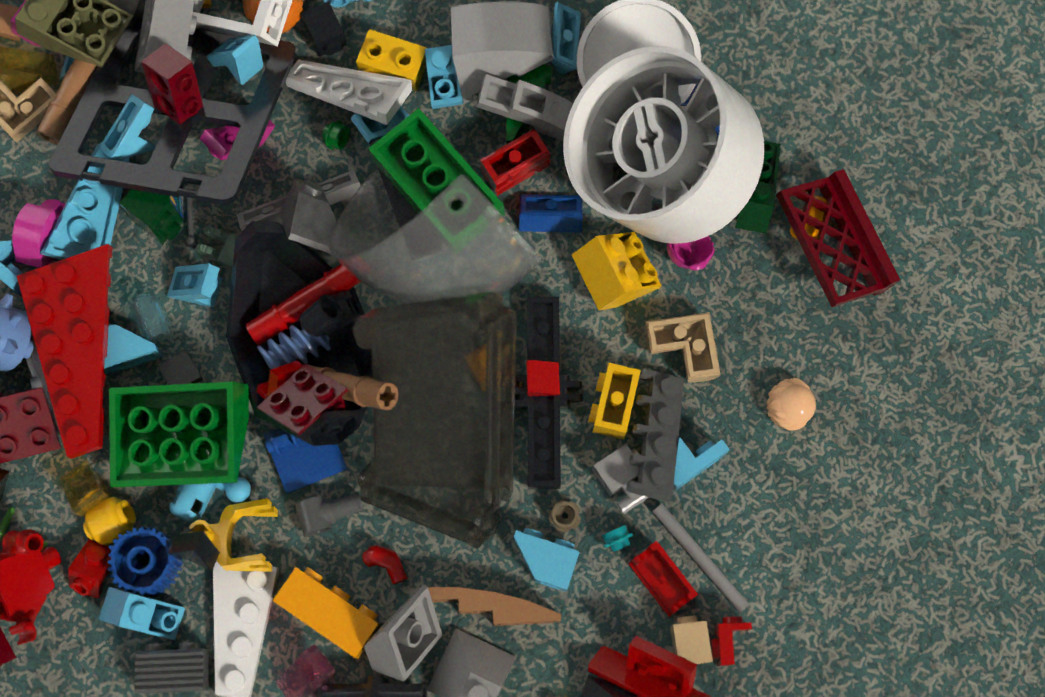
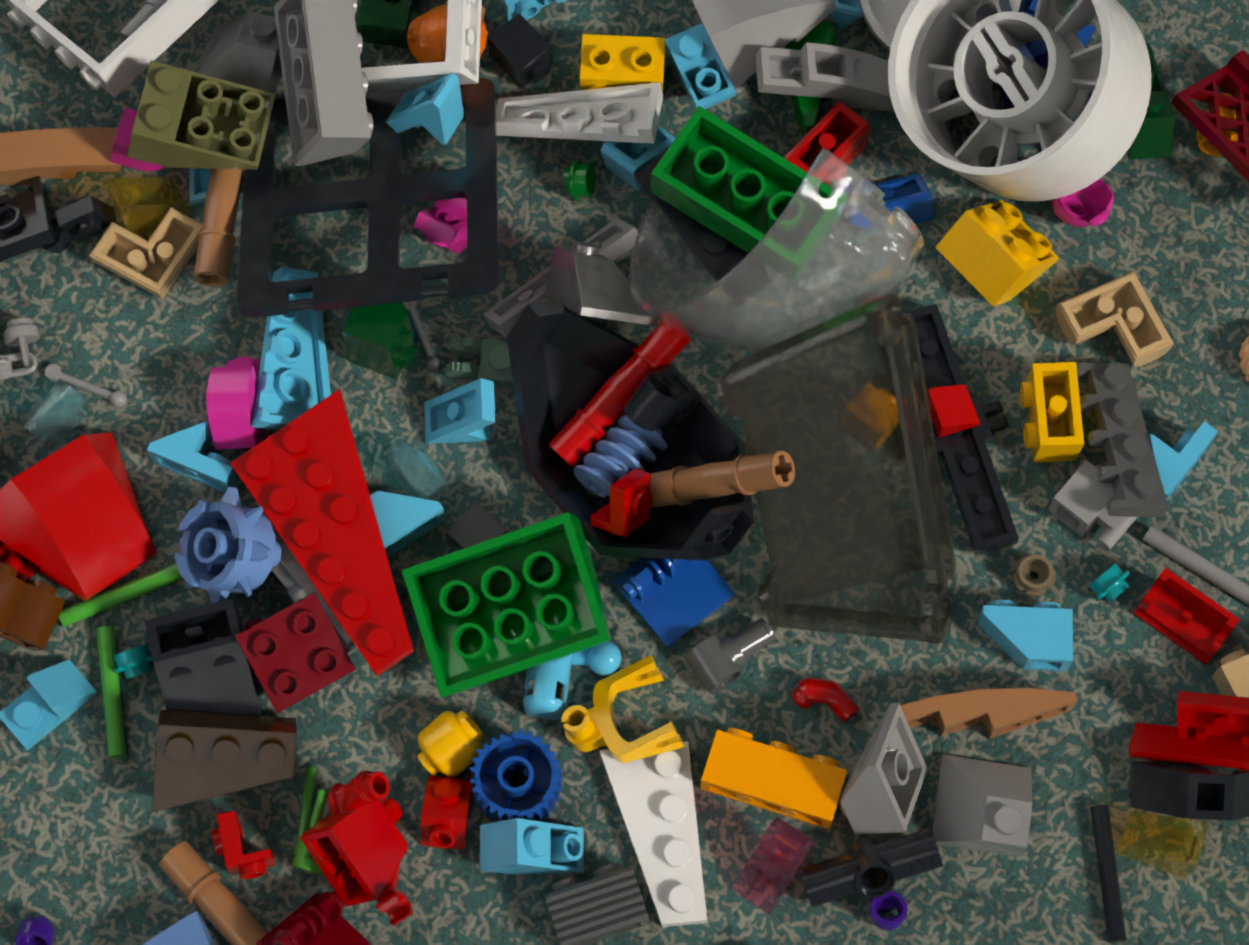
camera: 15 degrees left, 5 degrees down
(84, 488) = (403, 712): clear yellow slope -> none
(124, 136) = (319, 243): medium azure slope -> none
(172, 83) = (367, 161): dark red brick -> none
(195, 548) = (581, 742): black slope -> none
(304, 399) = (670, 506): dark red hinge -> none

